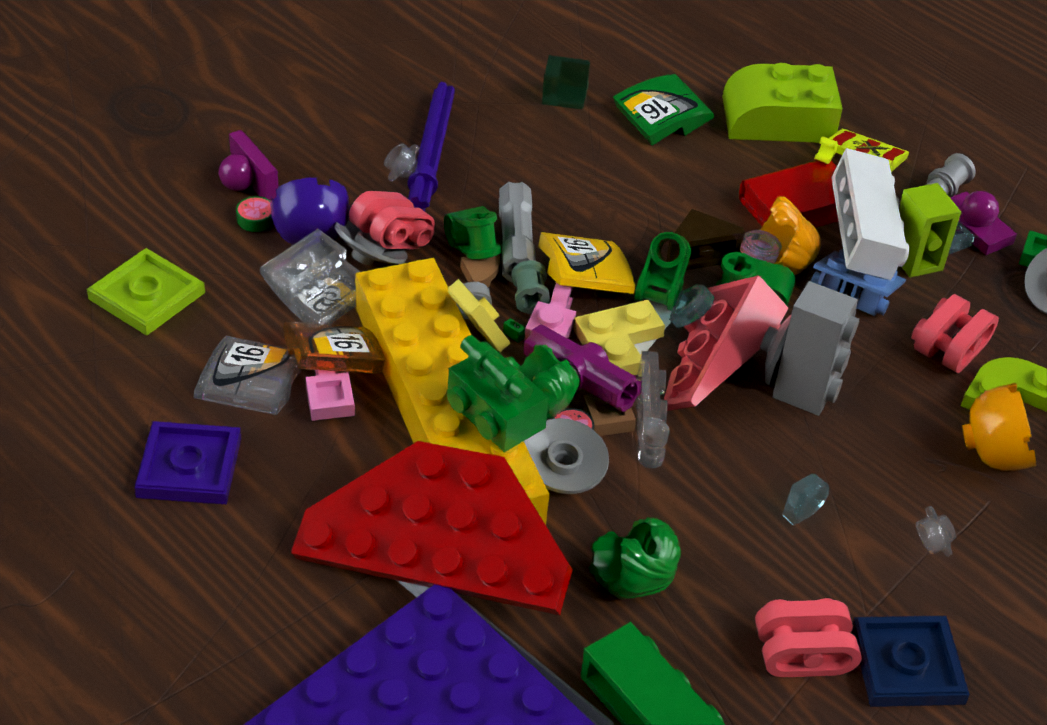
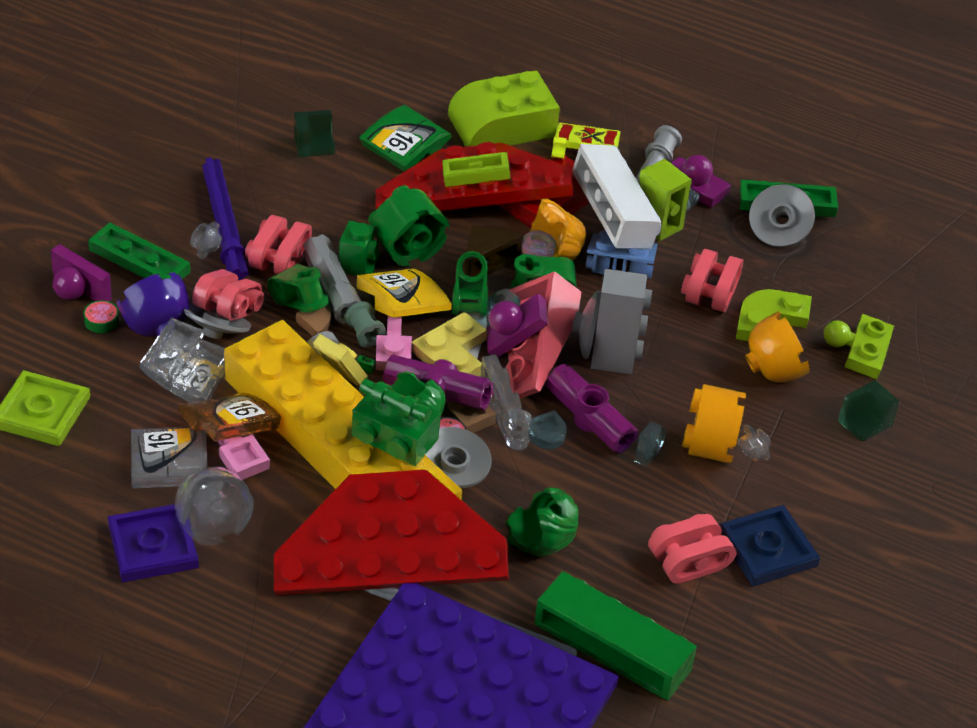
camera: 20 degrees left, 0 degrees up
(264, 438) = (213, 504): none -> clear cylinder
(322, 159) = (136, 253): none -> green plate
(473, 182) = (277, 244): none -> coral brick
(557, 206) = (358, 249): none -> green brick
(621, 194) = (409, 226): none -> green brick
(690, 453) = (548, 430): none -> clear light blue tile
(694, 324) = (514, 323): none -> magenta tile
(717, 163) = (530, 179): none -> red plate
(719, 151) = (476, 169): none -> lime tile
(751, 441) = (591, 408): none -> magenta piece
(889, 495) = (715, 423): none -> light orange brick

